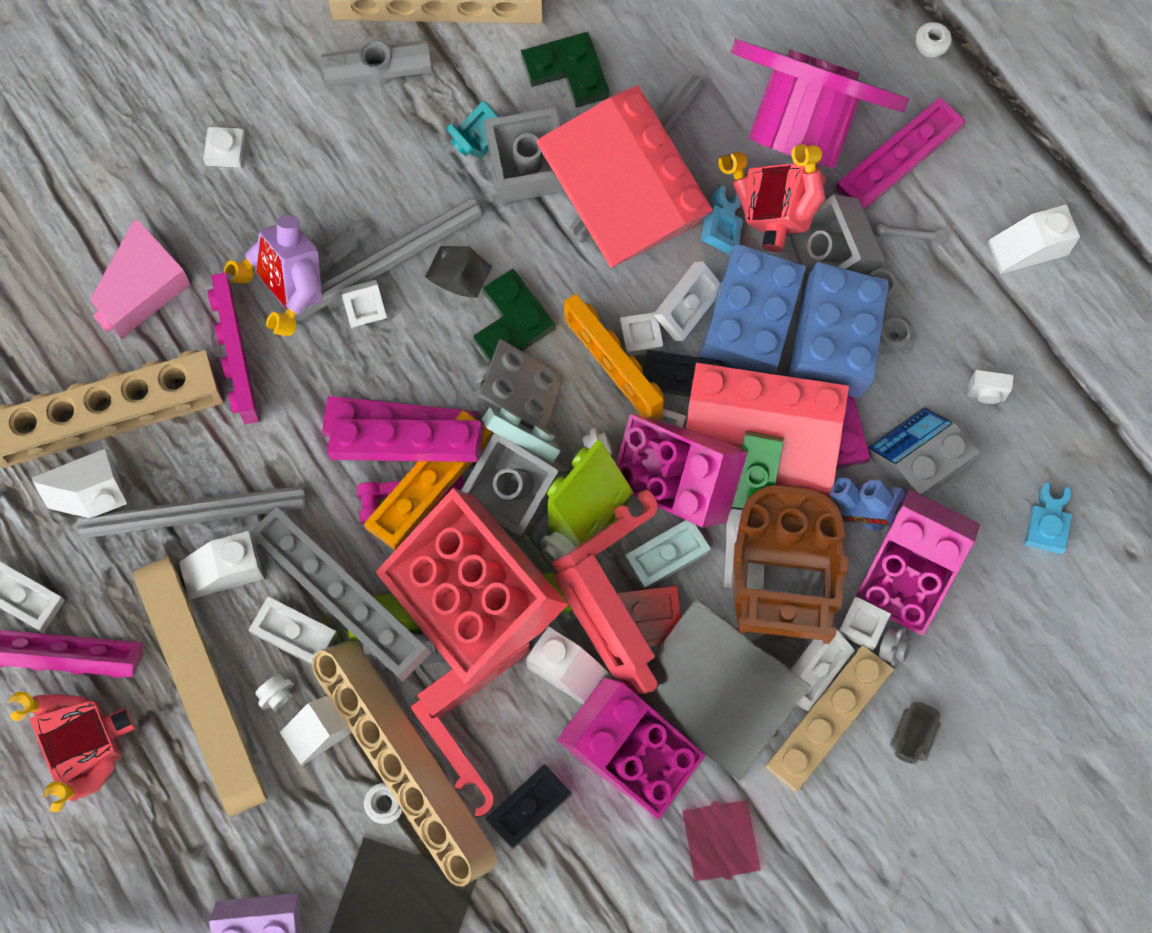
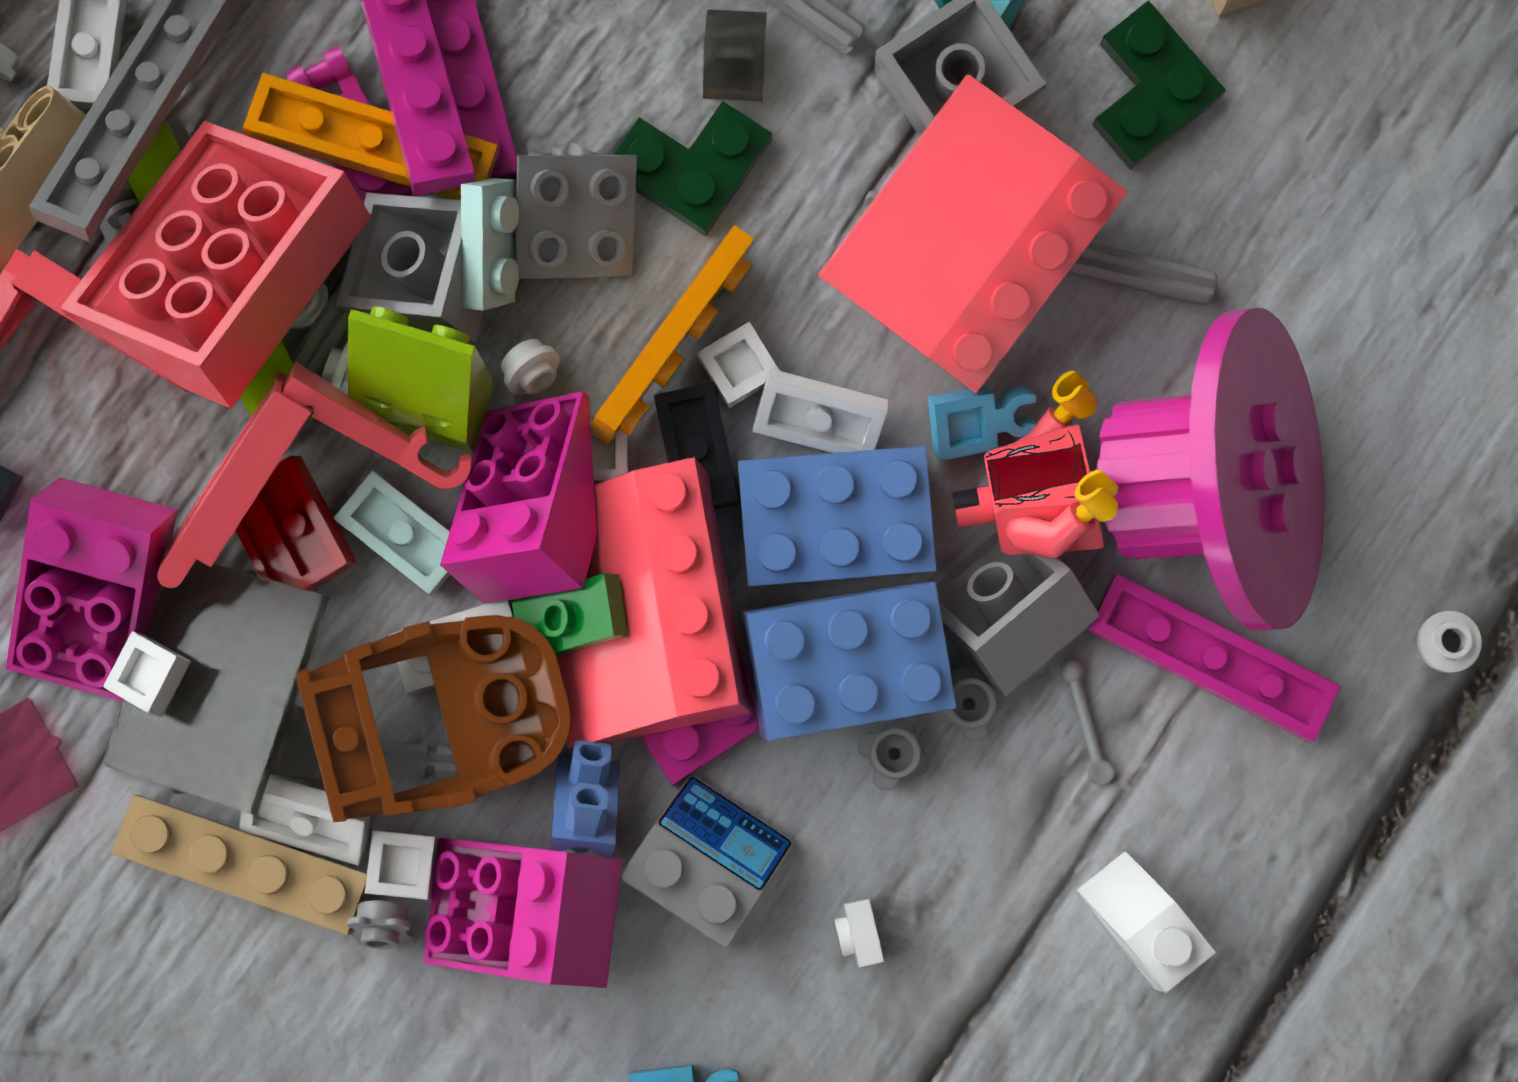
camera: 70 degrees right, 10 degrees up
(565, 665) = (172, 447): white slope -> none
(699, 725) = (147, 674): none -> white plate
(916, 733) = (258, 1000): clear smoke brick -> none

